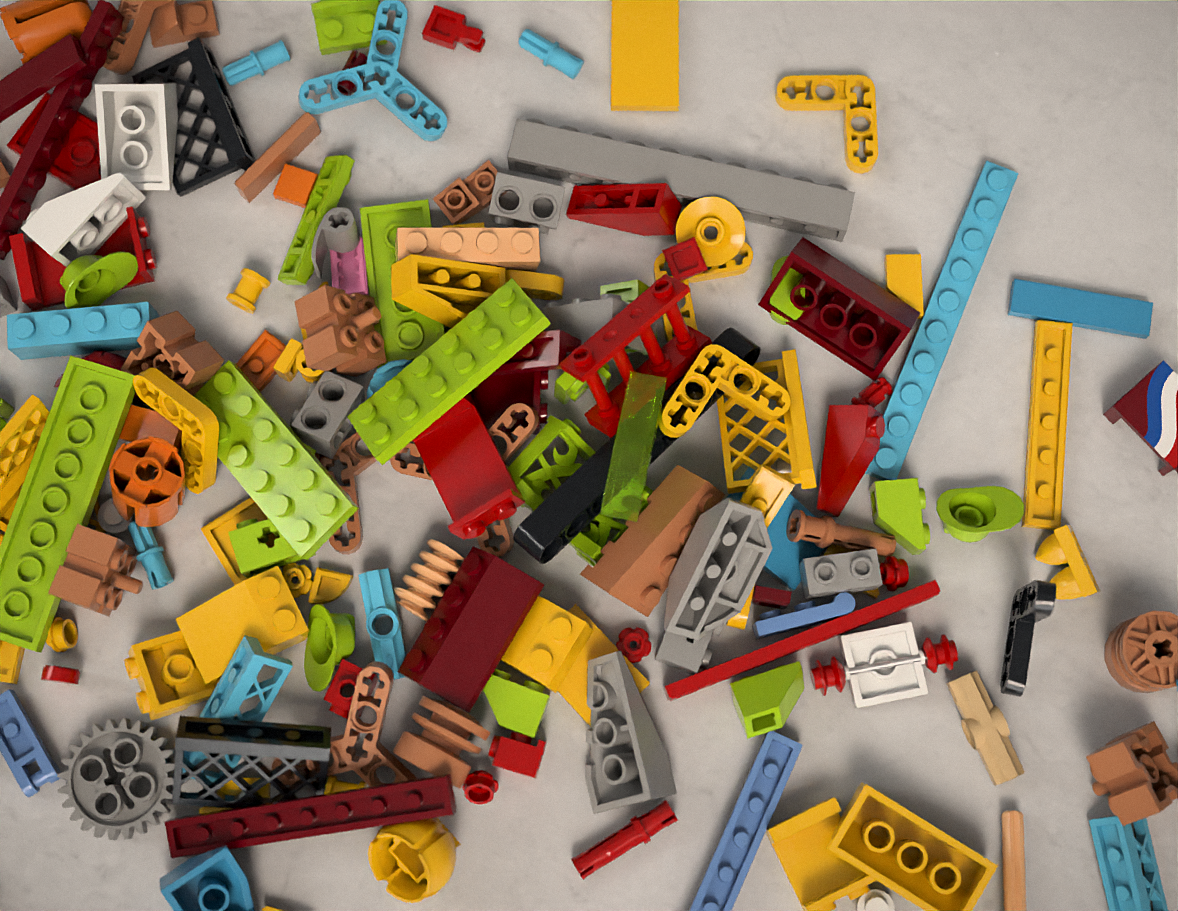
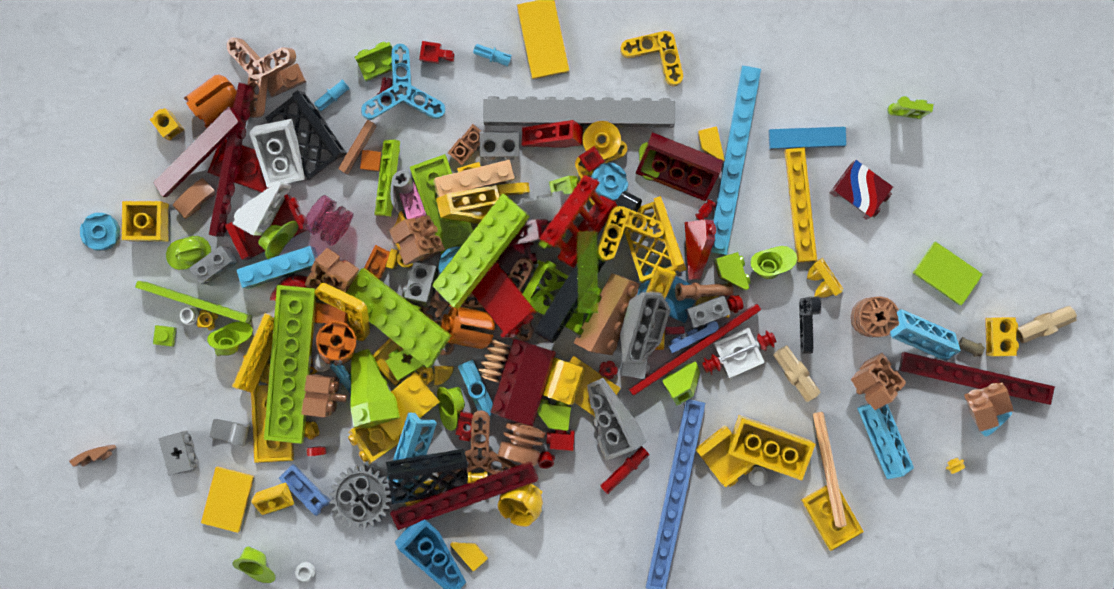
camera: 15 degrees left, 10 degrees up
(185, 592) = (370, 395): none -> lime wedge
(192, 265) = (328, 220): none -> clear pink wheel
(248, 290) = (360, 225): yellow bush -> none
(402, 492) = (452, 322): none -> orange cylinder
(710, 305) = (611, 179): none -> medium azure tile

